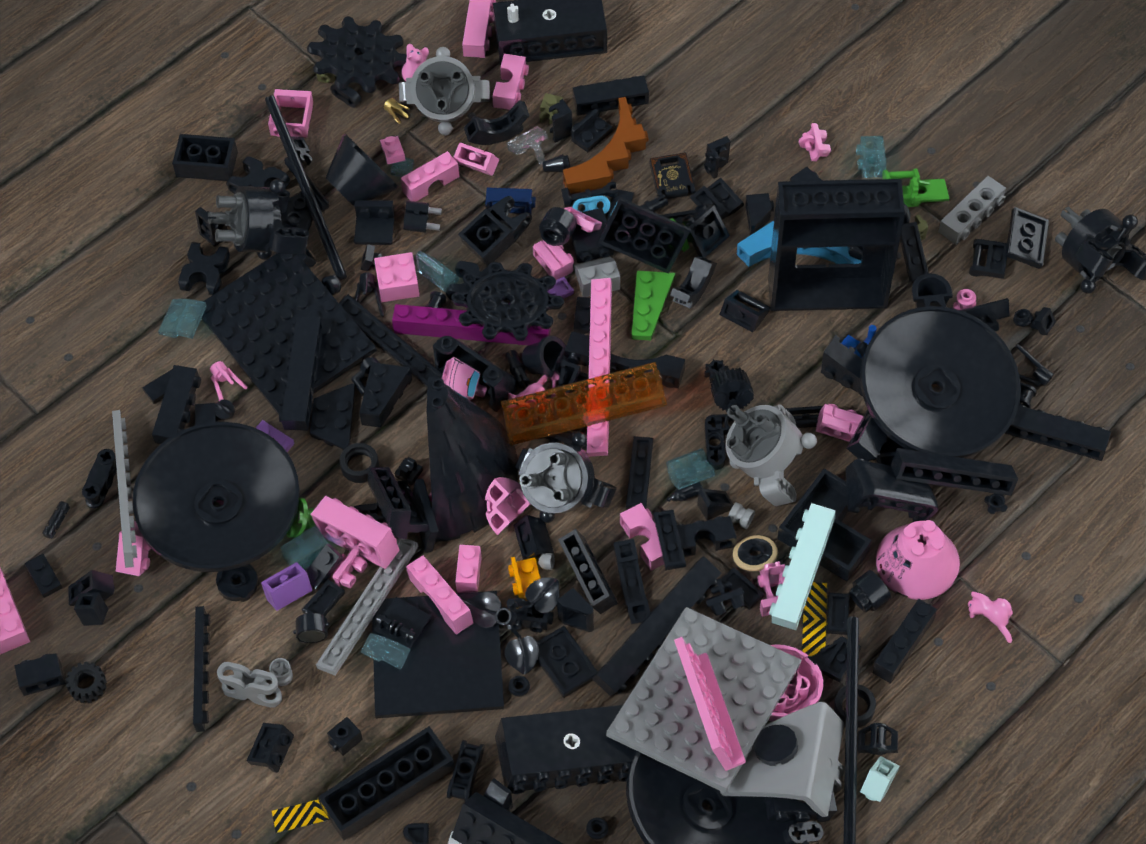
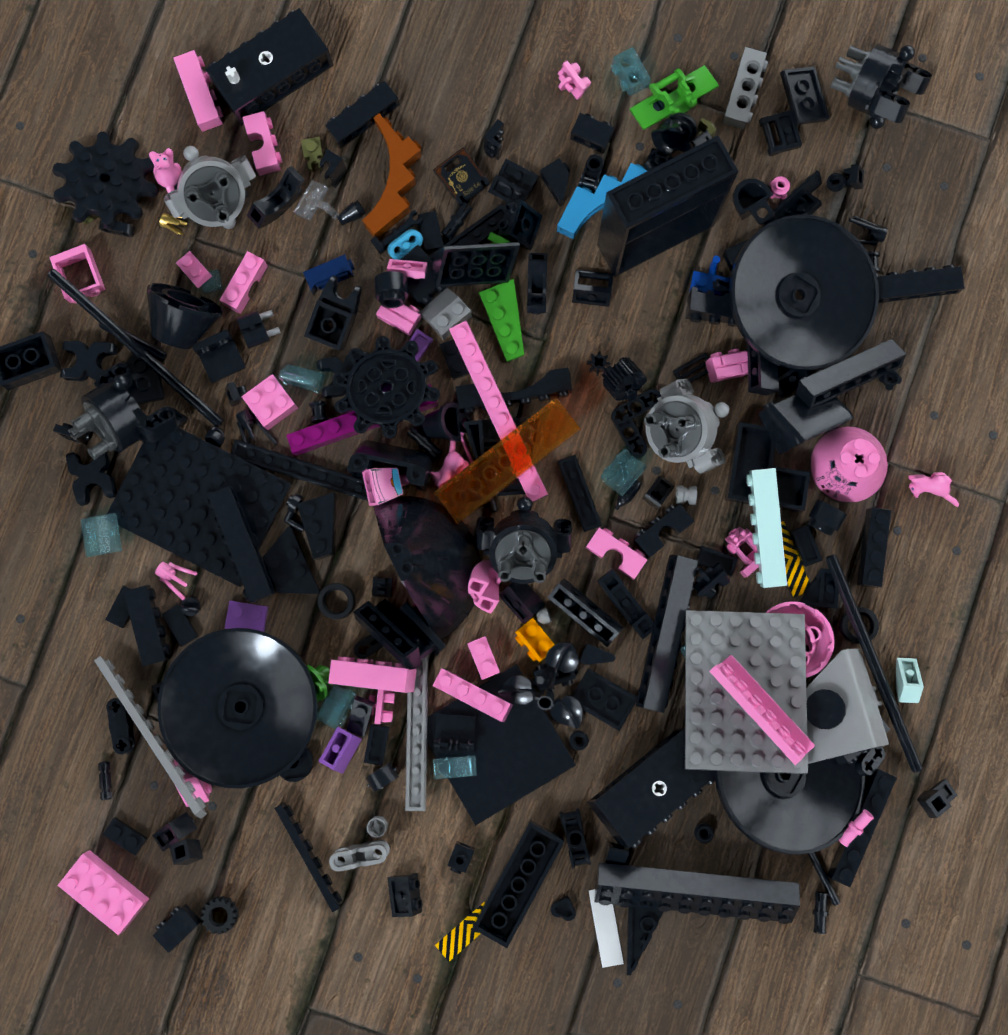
camera: 20 degrees left, 25 degrees up
(302, 149) = (109, 308): black plate -> none
(476, 159) = (276, 245): bright pink brick -> none
(590, 131) = (363, 162): black bracket -> none
(669, 540) = (641, 552): black tile -> none
(743, 548) = (716, 535): wheel -> none
(878, 746) = (896, 651): black piece -> none

